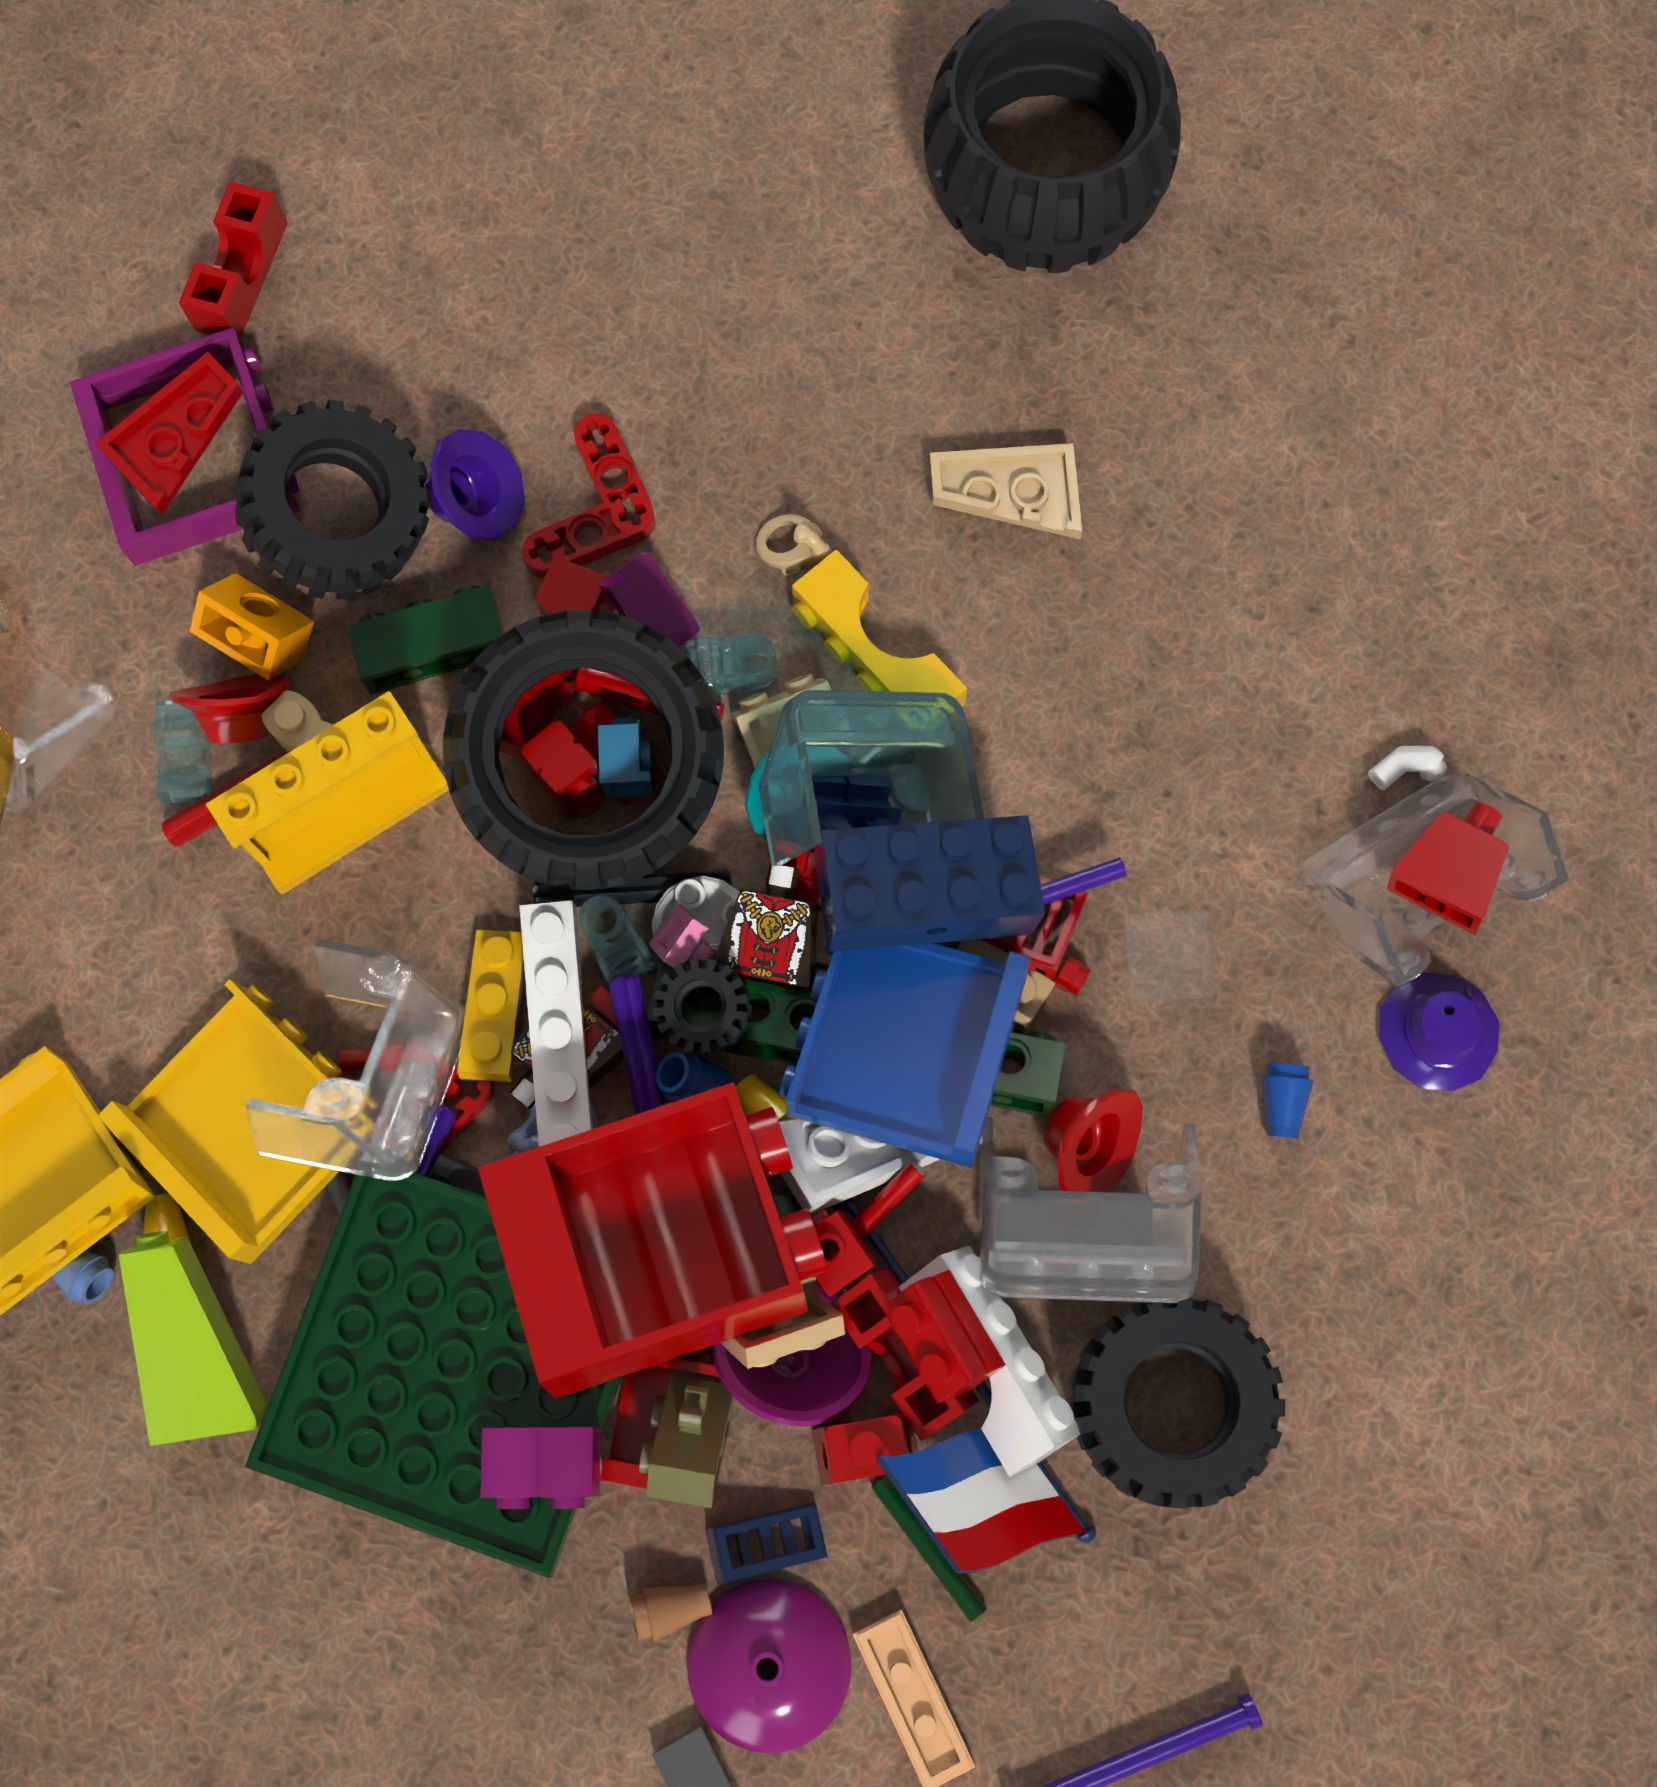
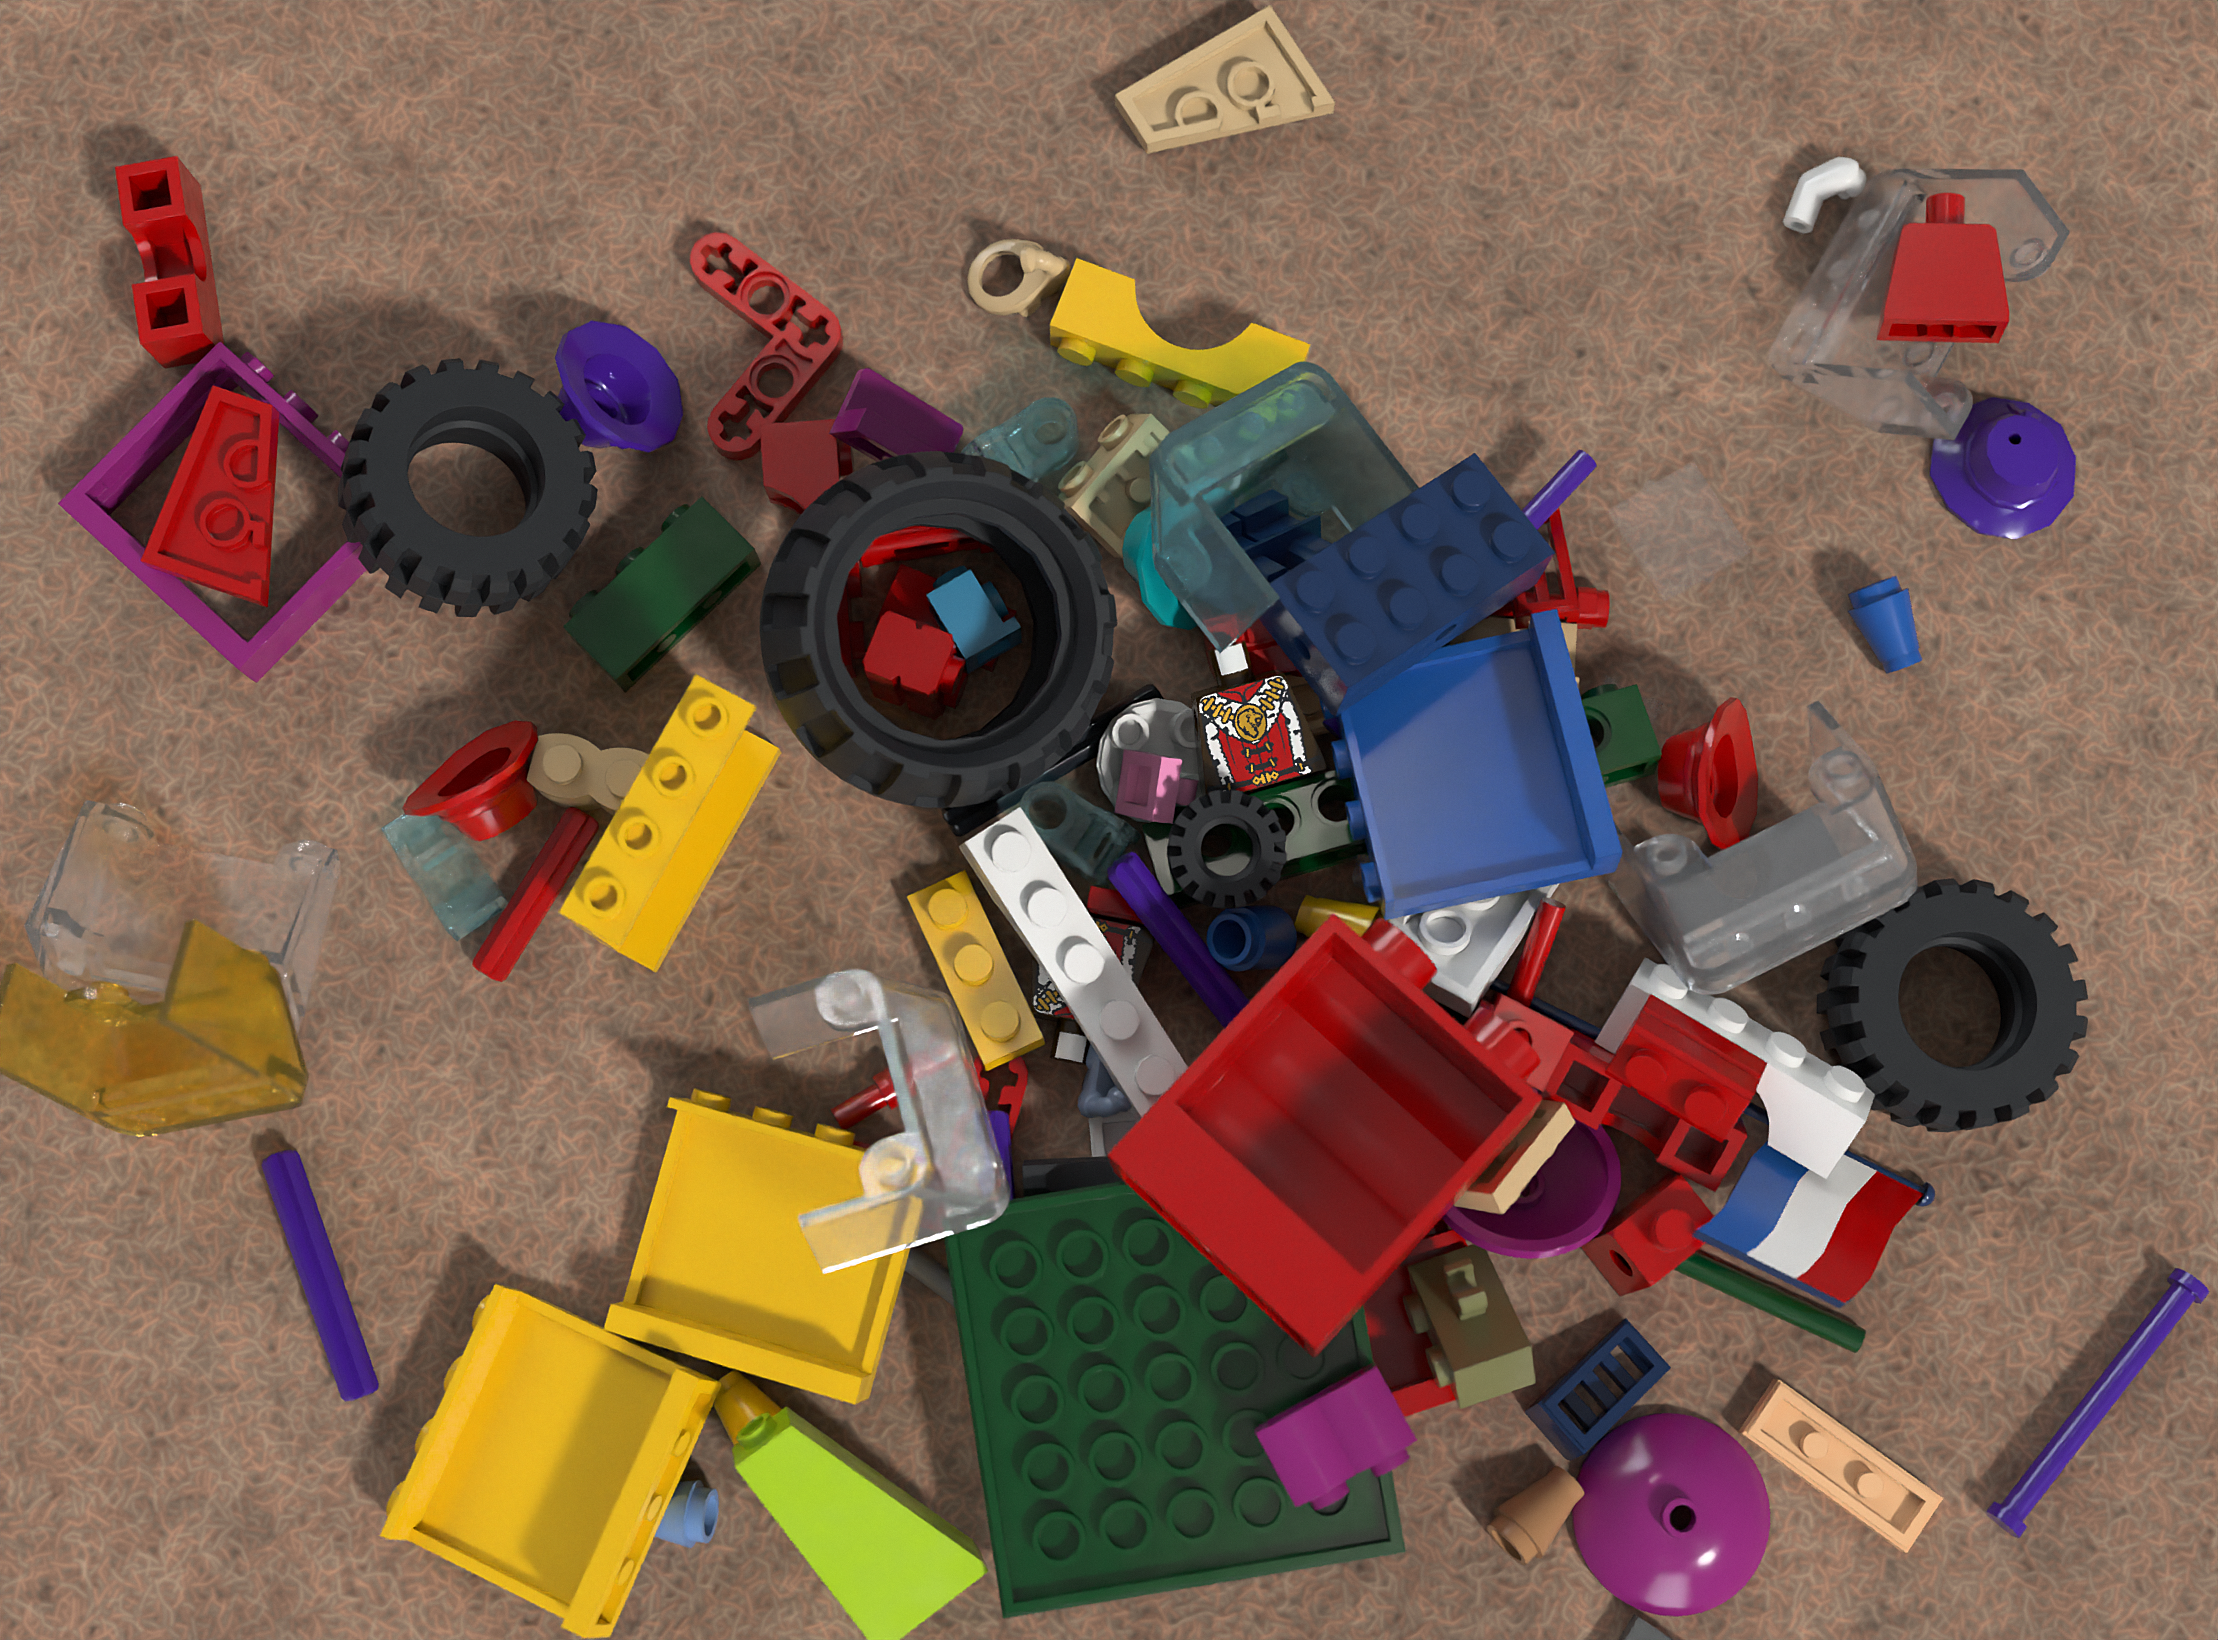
camera: 35 degrees left, 5 degrees up
(251, 626) = (448, 683): light orange brick -> none

